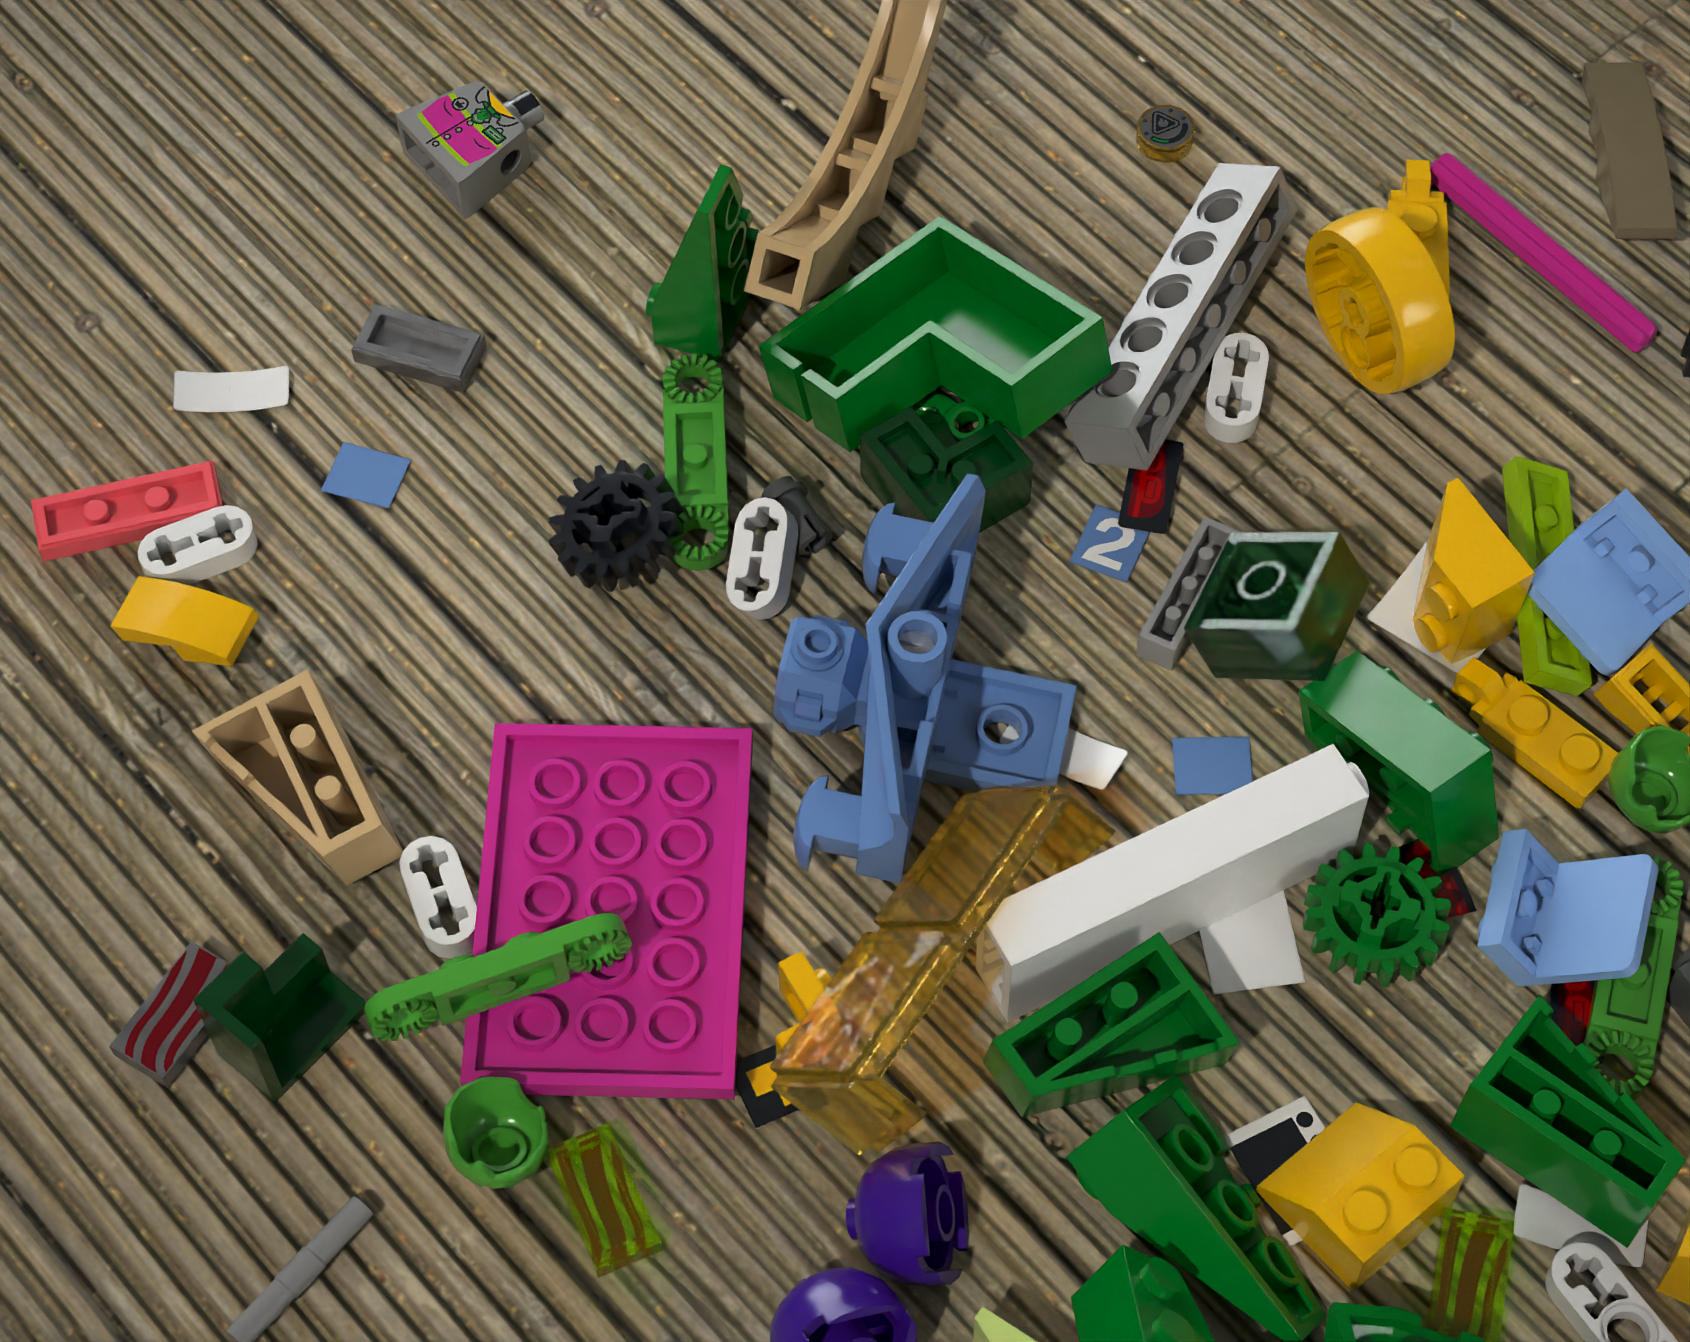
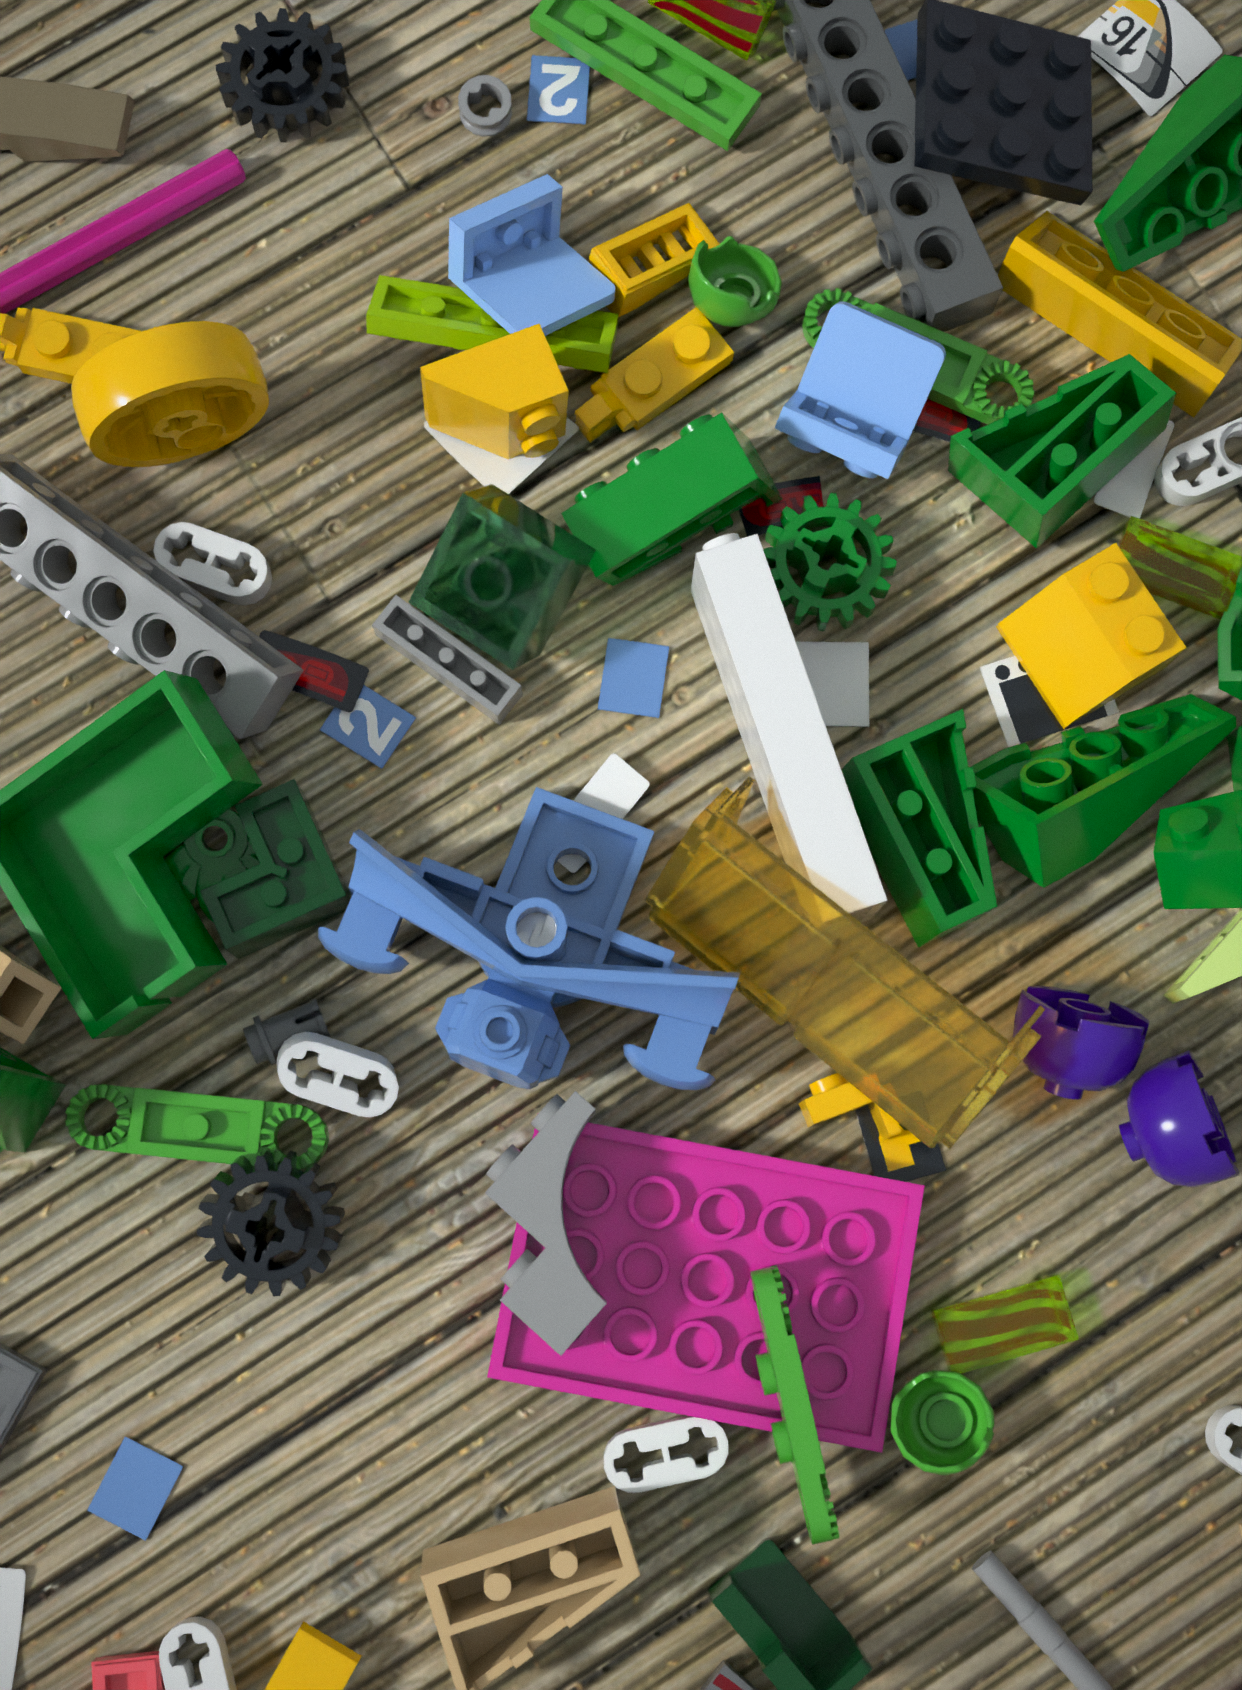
camera: 85 degrees left, 20 degrees up
(675, 719) = (528, 1185): none -> light grey arch

